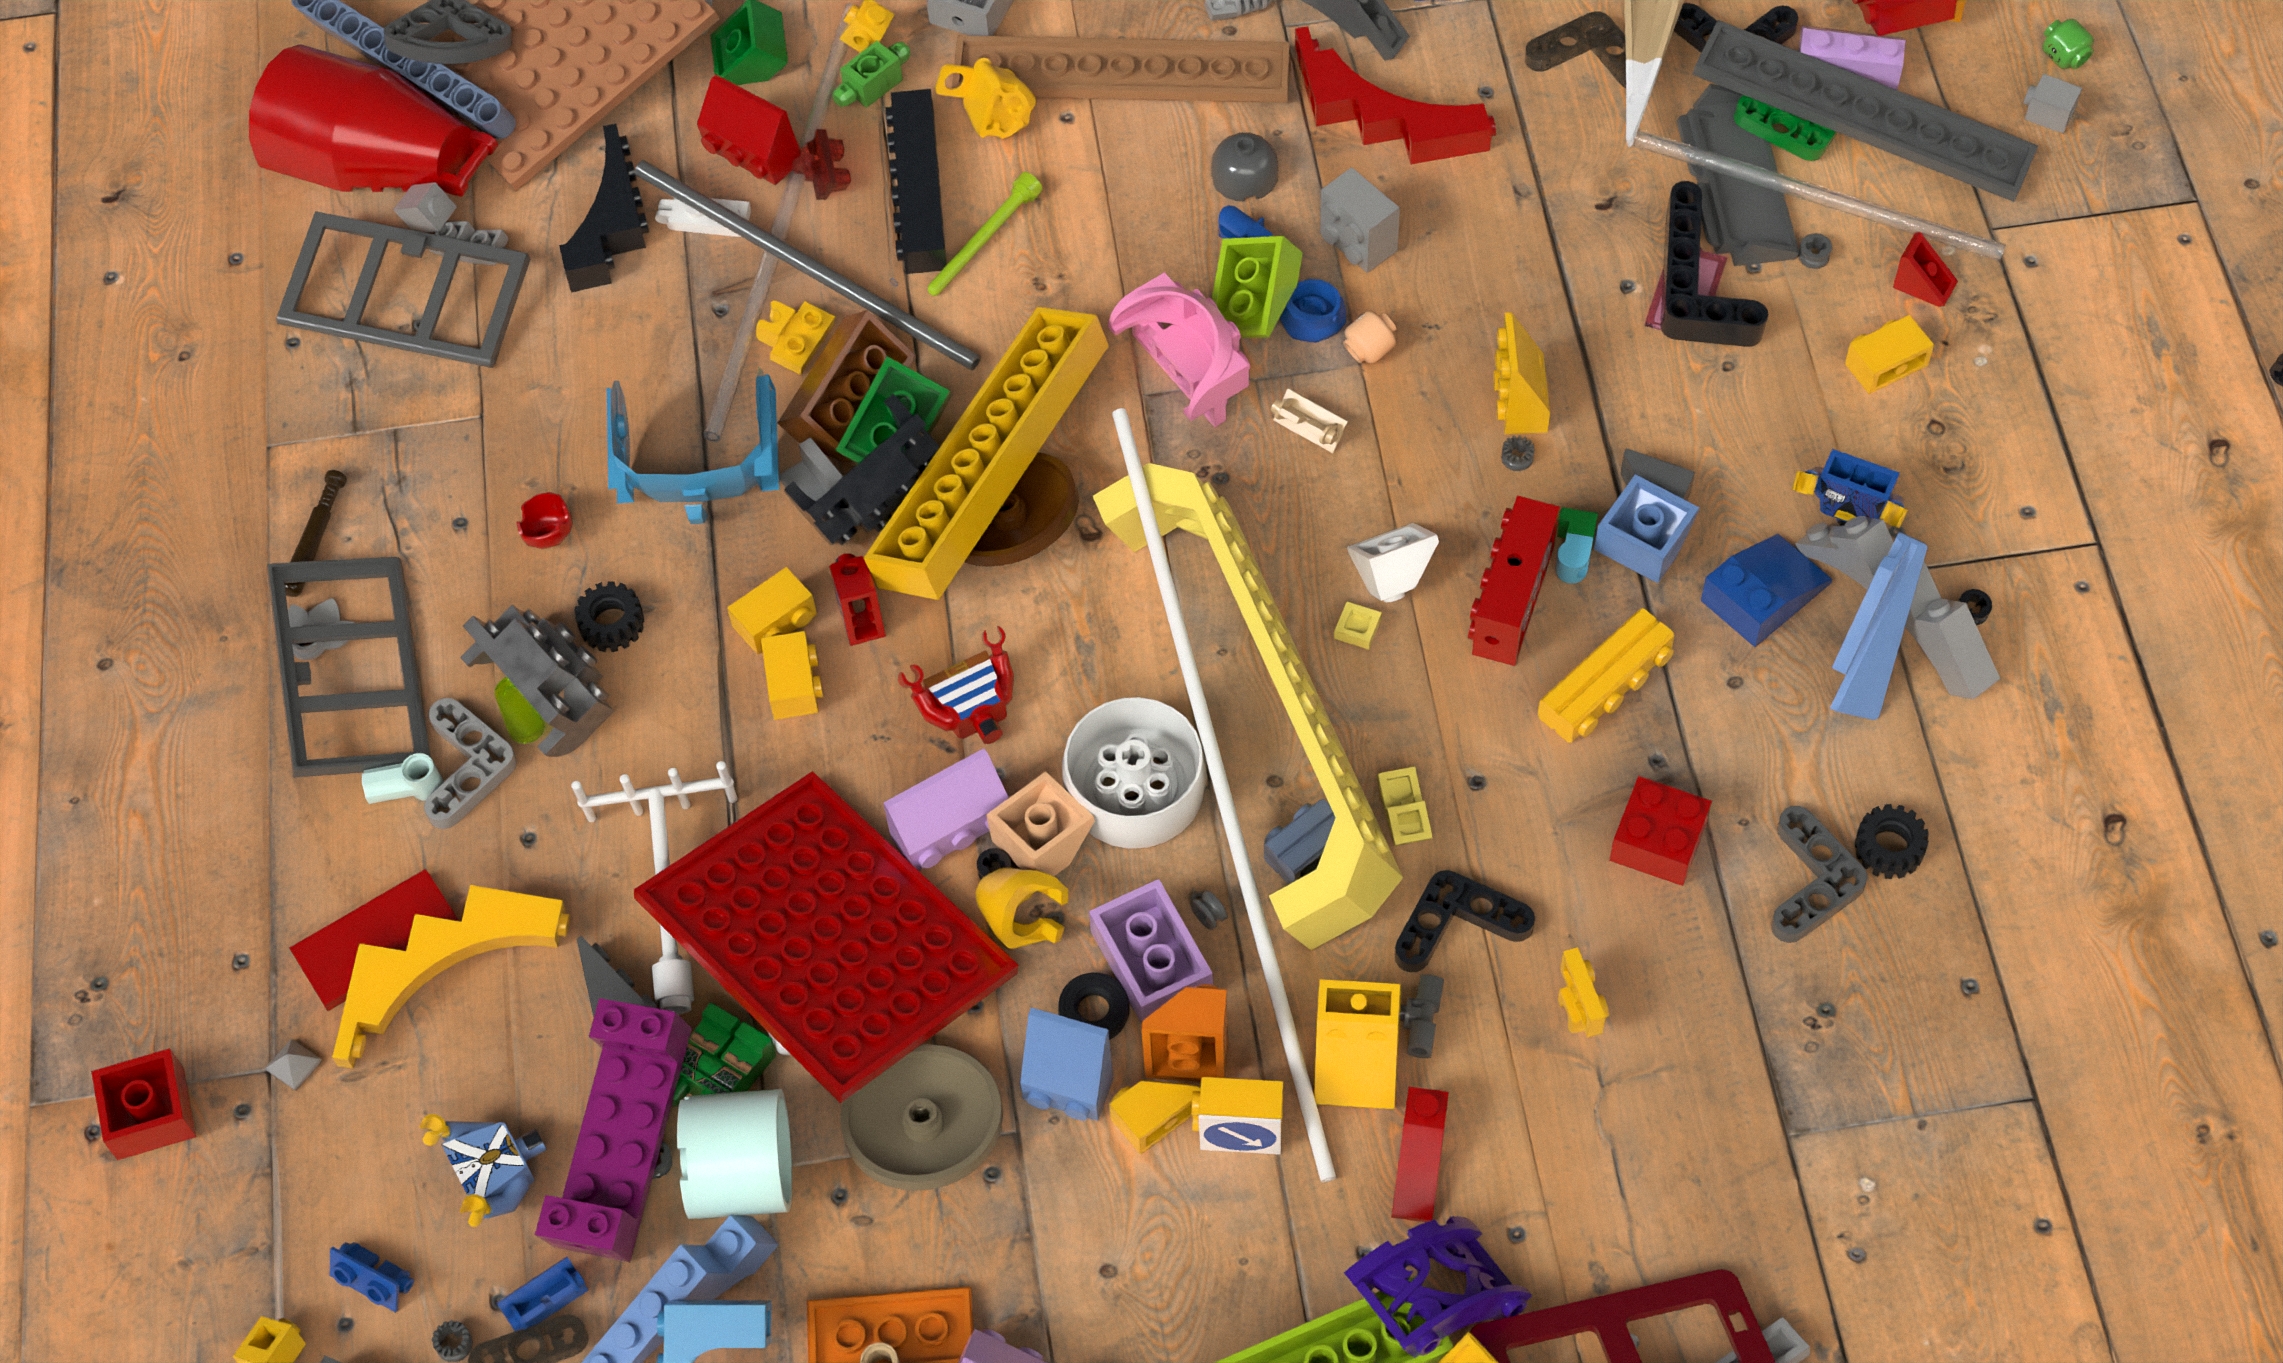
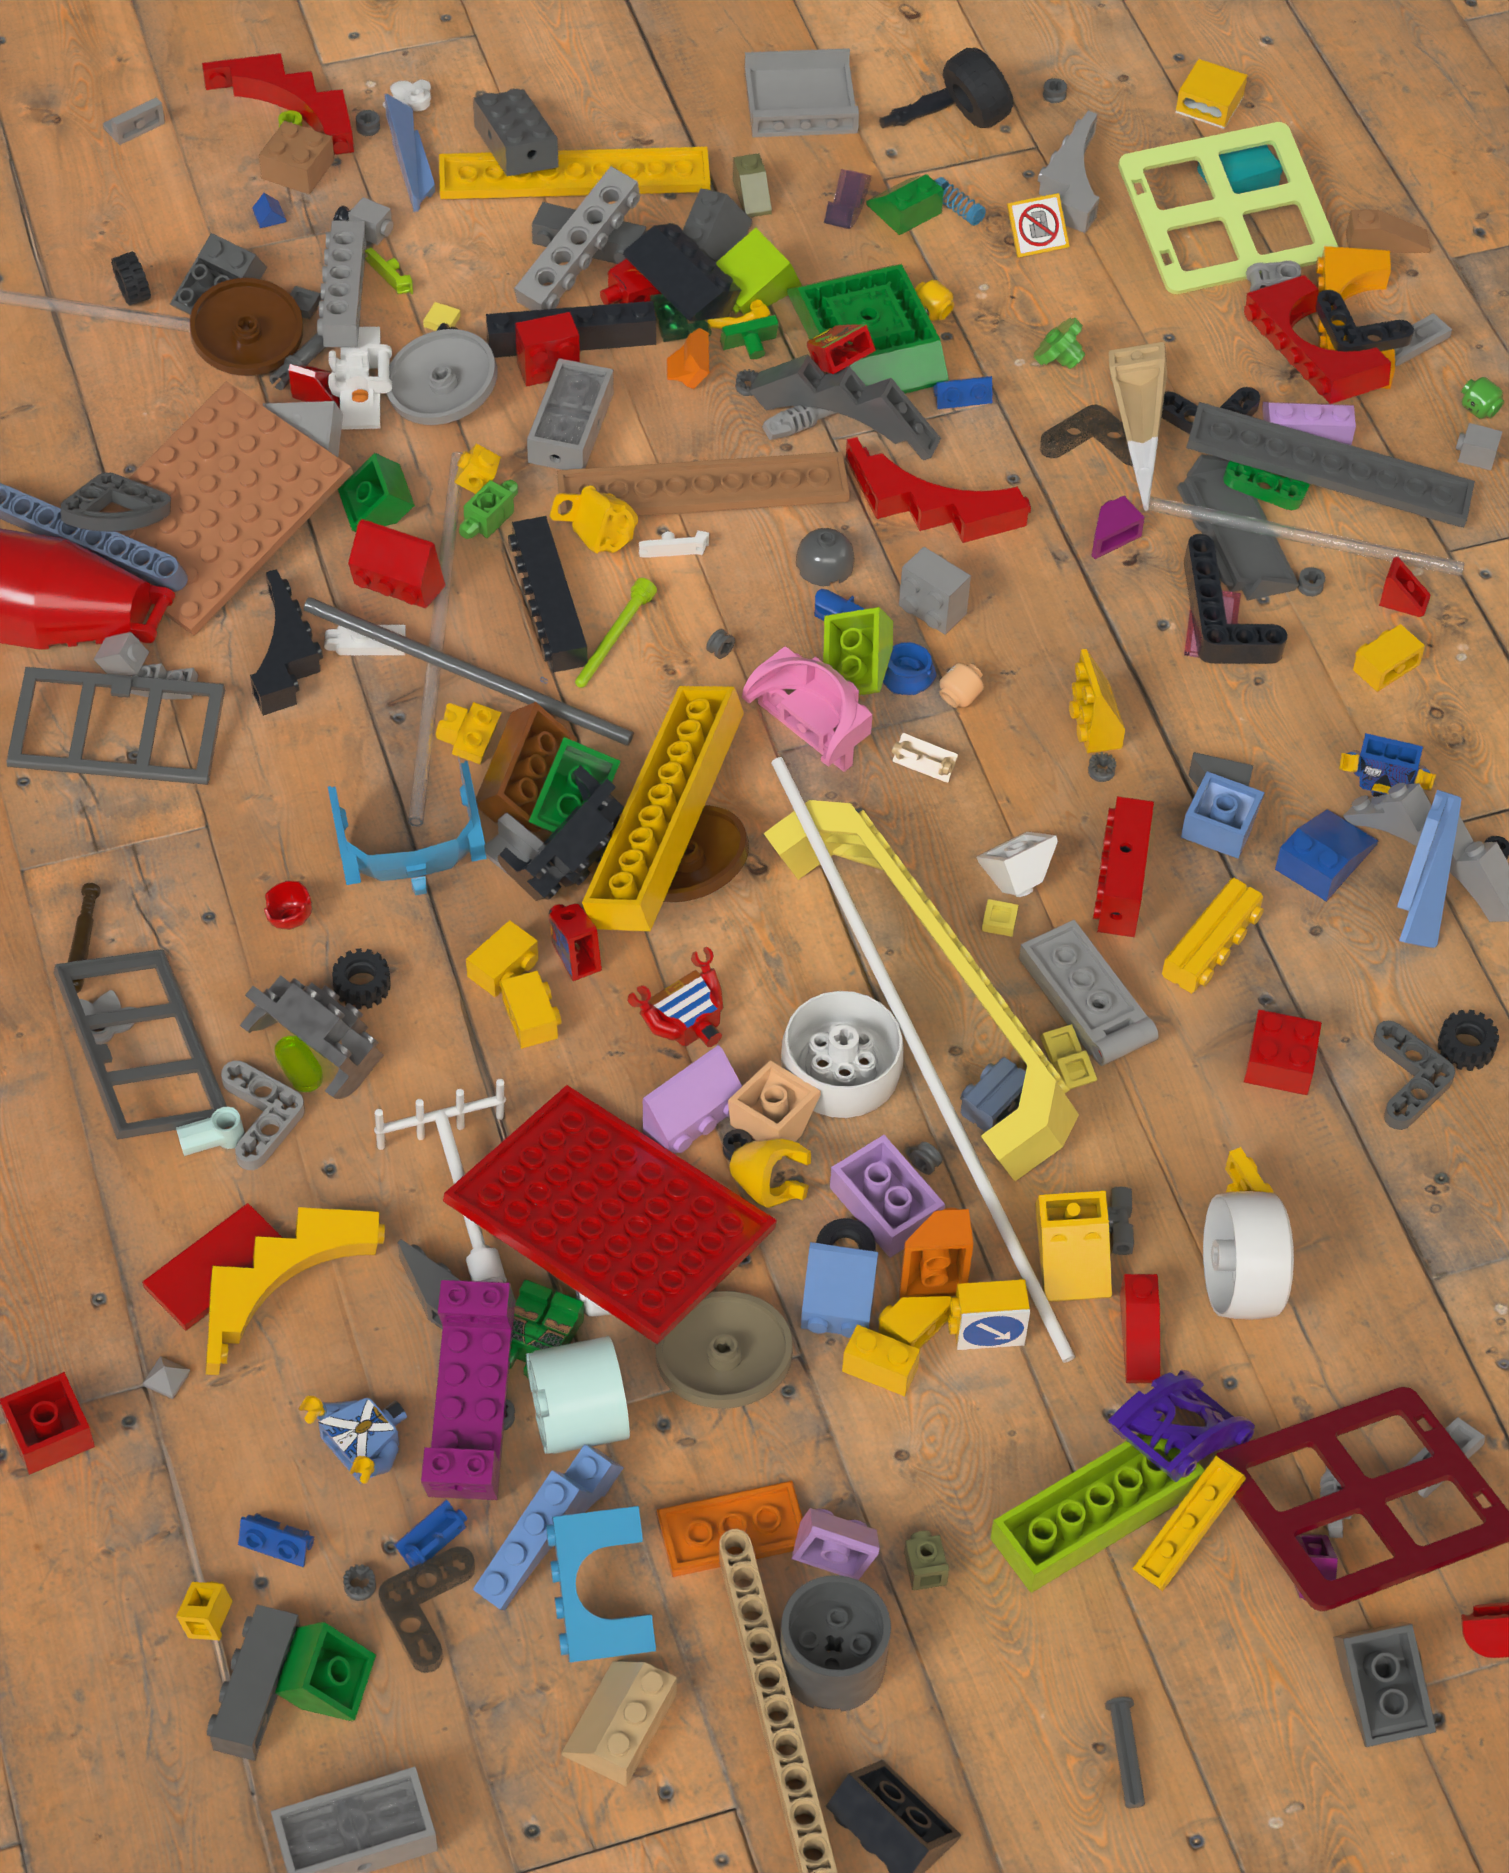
camera: 15 degrees left, 5 degrees down
(817, 164) = (461, 587): clear red hips -> none
(1070, 137) = (674, 546): none -> white piece
(1101, 259) = (720, 643): none -> dark grey bush
(1103, 1153) = (880, 1360): none -> yellow brick
(1438, 716) = (1087, 993): none -> light grey hinge
(1458, 904) = (1129, 1130): black beam -> none
(1558, 1084) = (1248, 1255): none -> white wheel
(1575, 552) = (1167, 842): leg -> none
(1592, 162) = (1116, 526): none -> magenta slope

